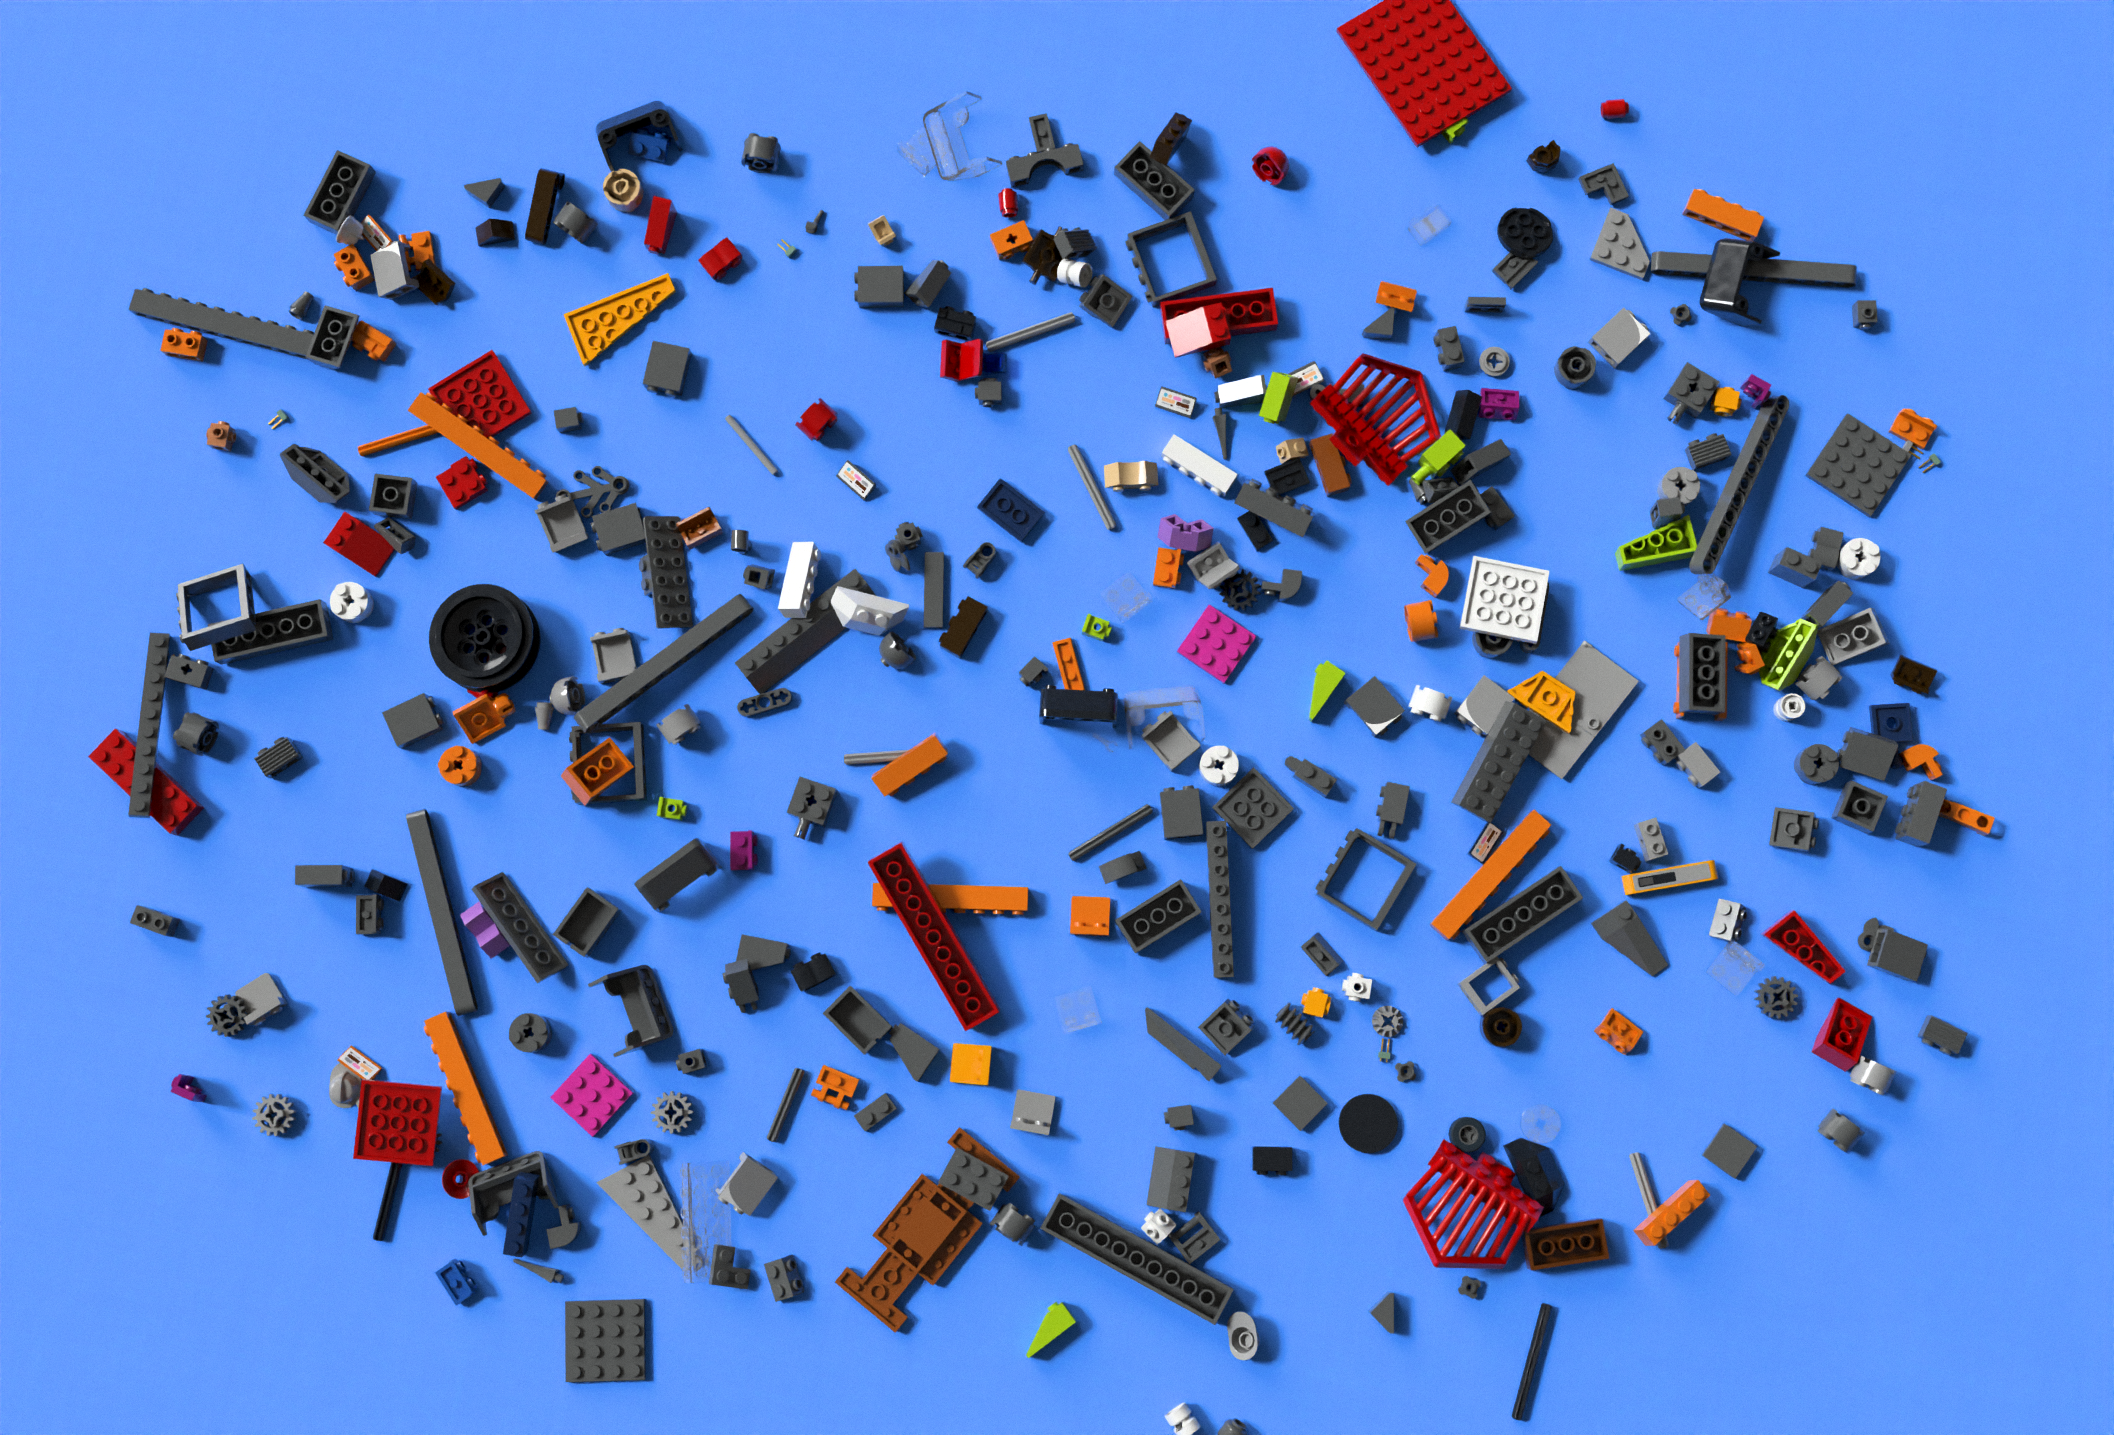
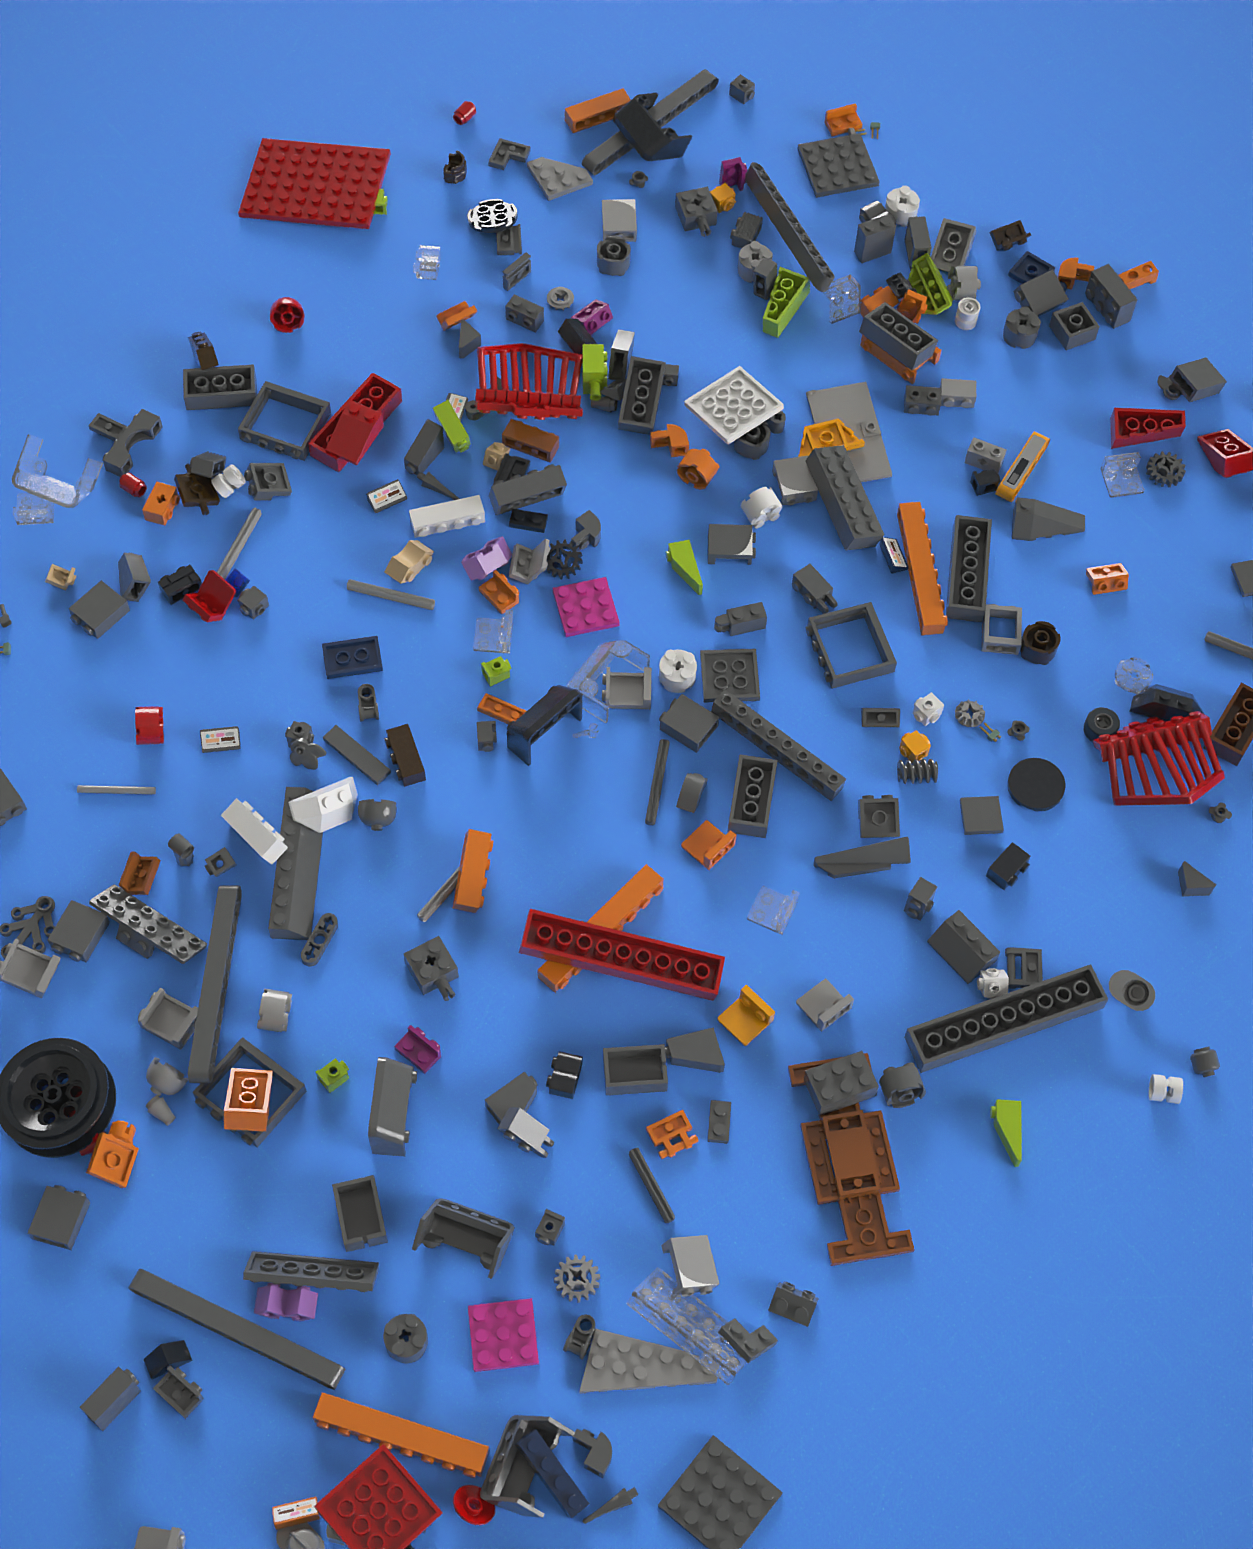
camera: 55 degrees left, 20 degrees down
(449, 766) = (145, 1209): orange brick -> none
(1217, 362) = (386, 447): nougat brick -> none
(1728, 920) = (1083, 456): bracket -> none
(1793, 829) = (1055, 373): dark grey plate -> none

